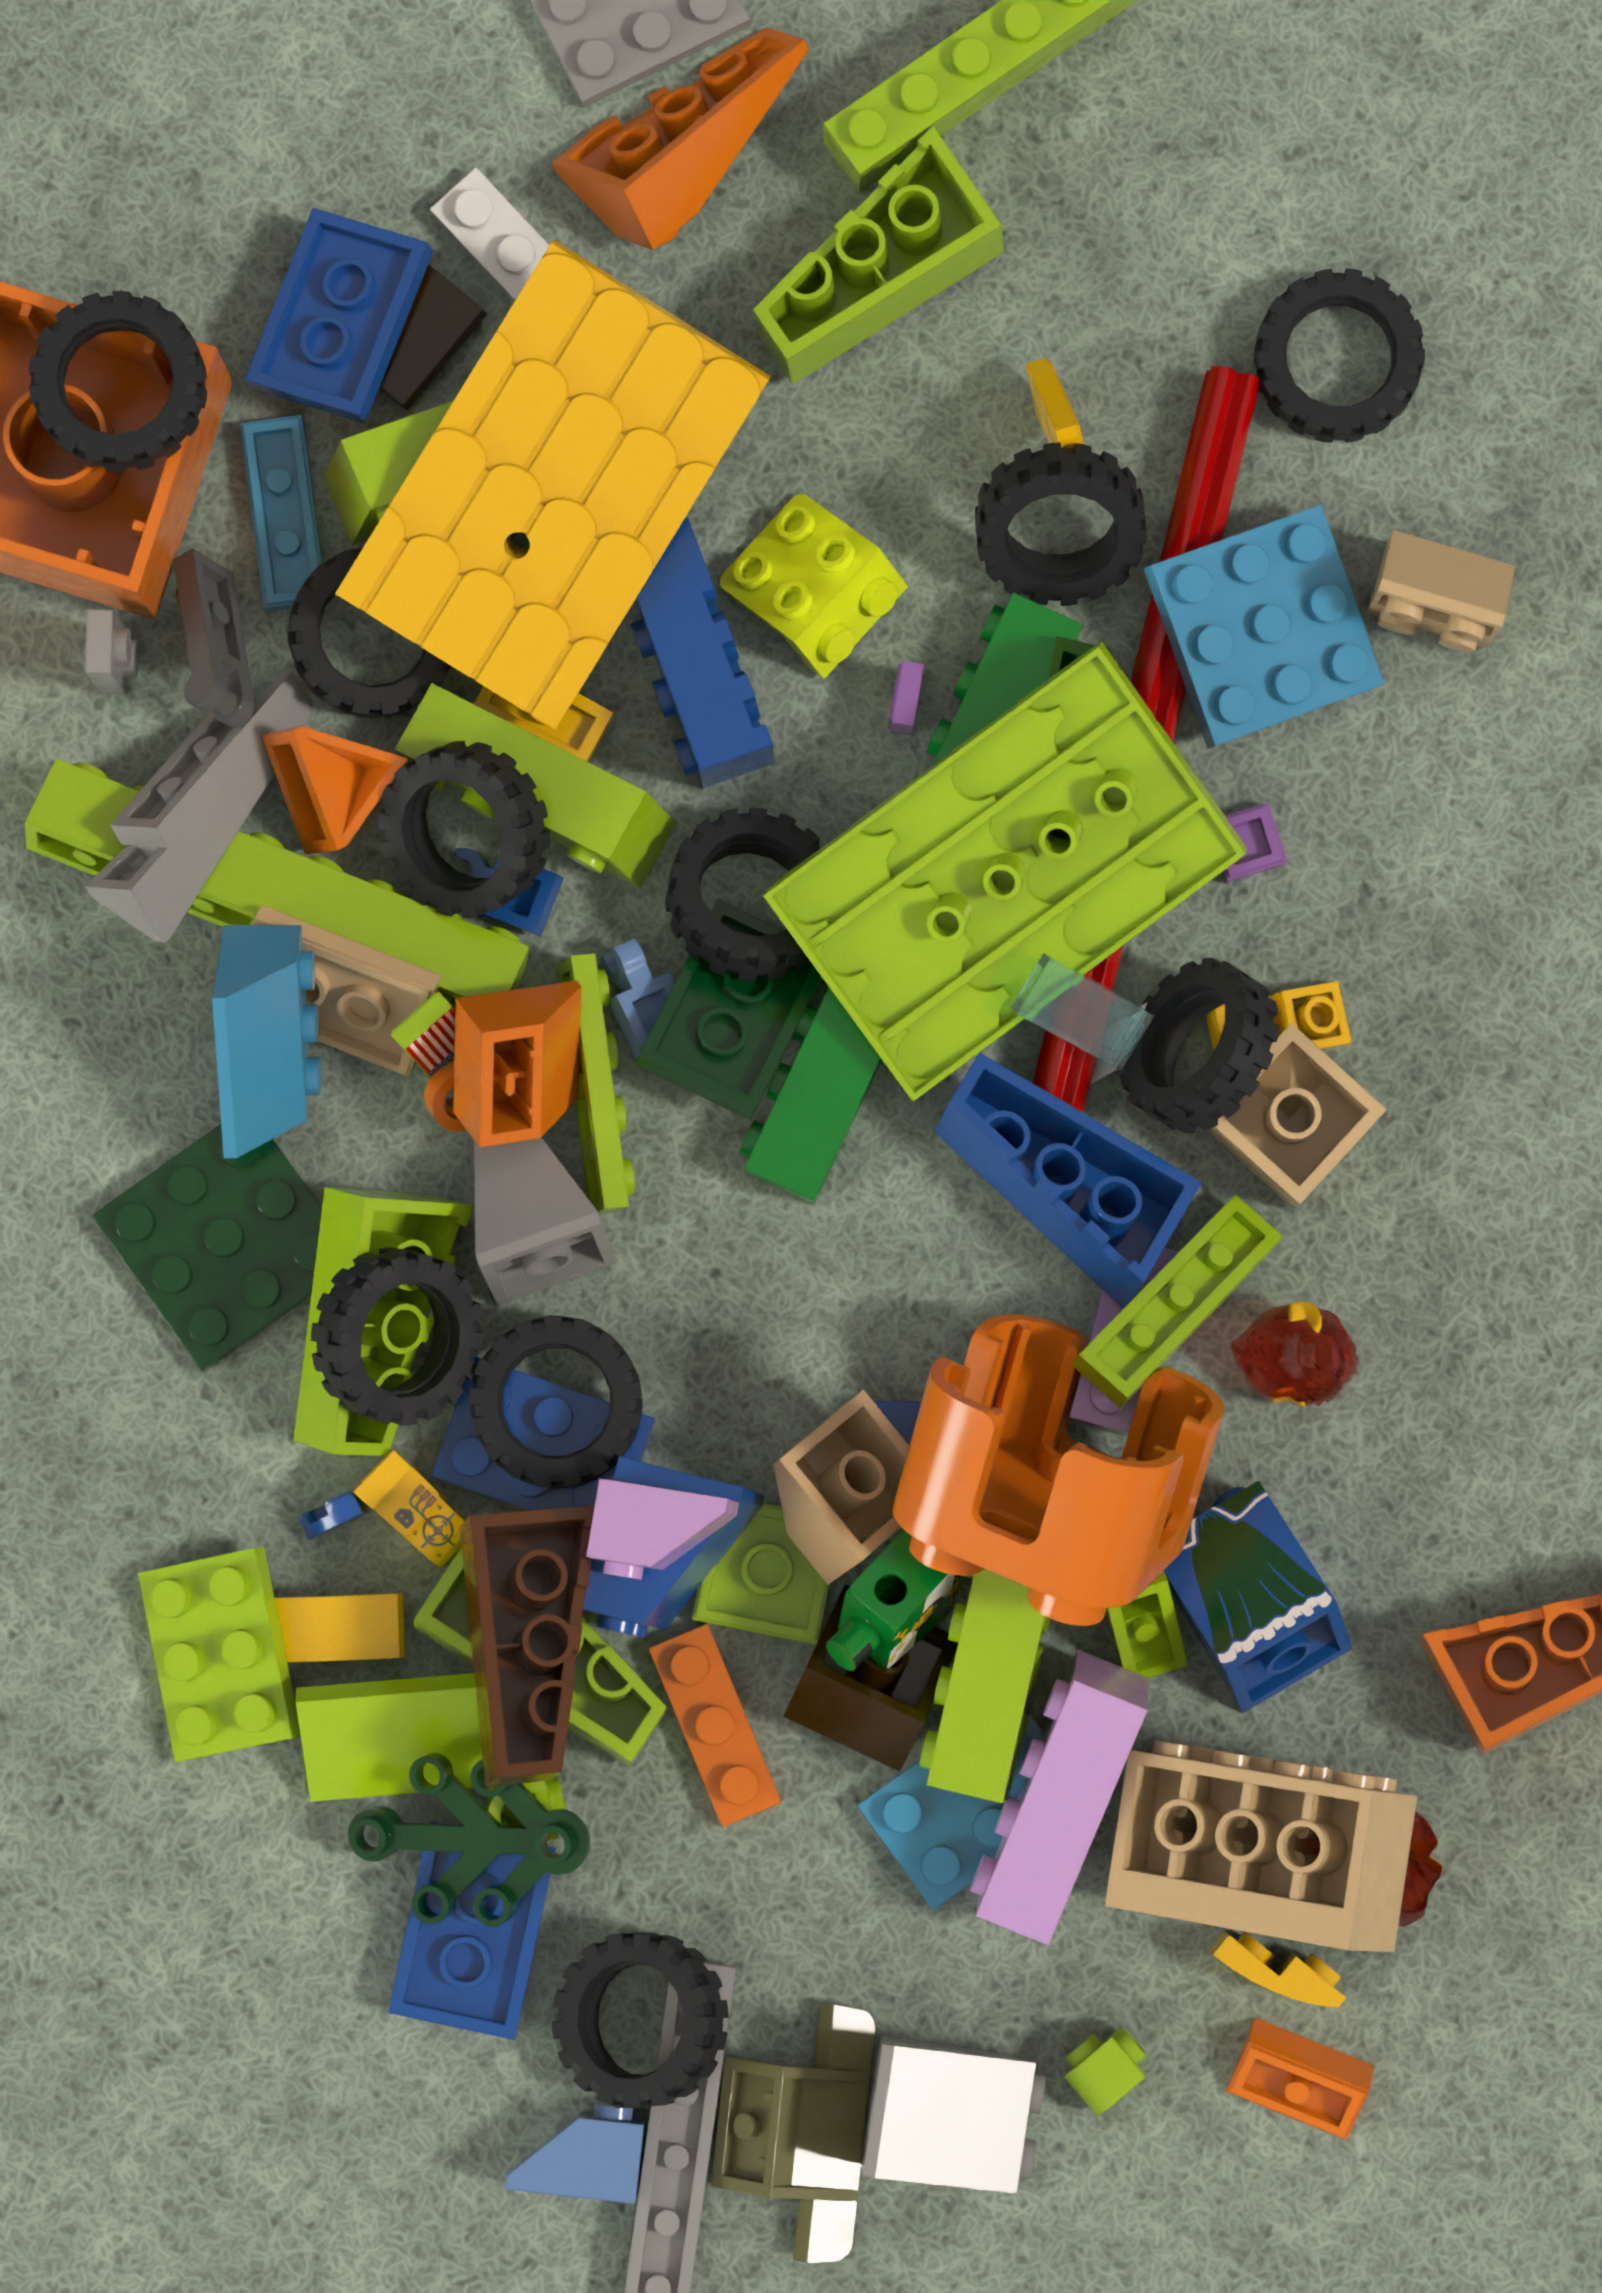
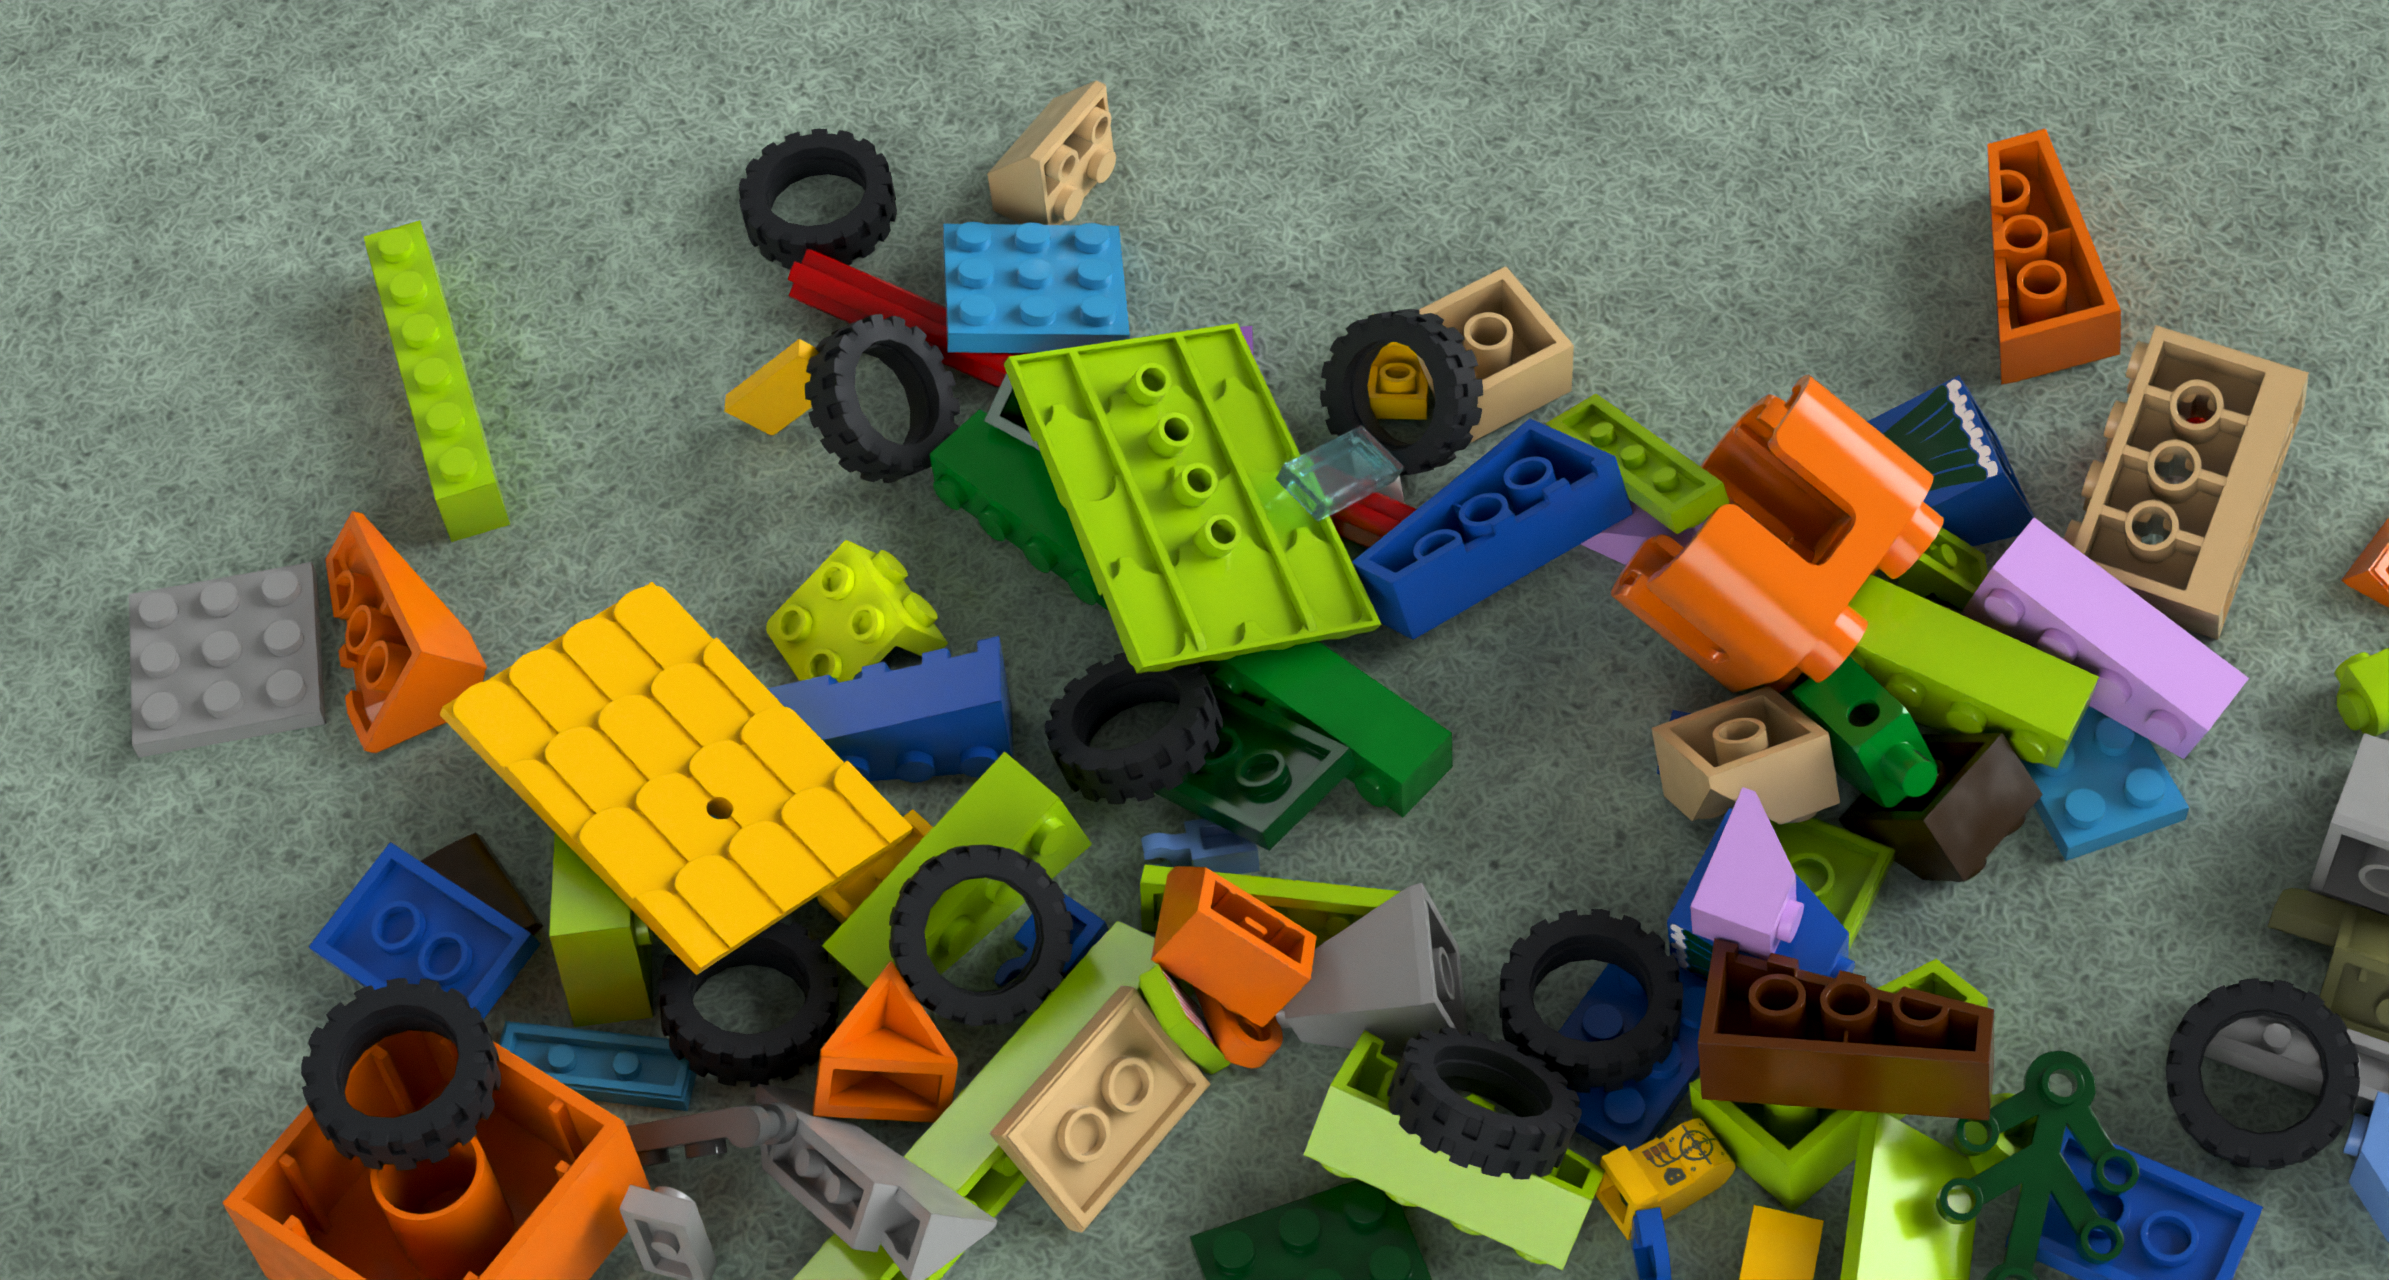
camera: 70 degrees left, 30 degrees down
(264, 1034) = (1120, 1166): dark azure slope -> none
(491, 232) = (411, 815): white plate -> none
(715, 1725) = (1984, 954): orange plate -> none
(882, 261) = (579, 486): lime wedge -> none
(906, 697) = (993, 572): medium lavender tile -> none
(1297, 1354) = (1707, 394): clear red hair -> none
(1302, 1981) = (2305, 534): yellow slope -> none

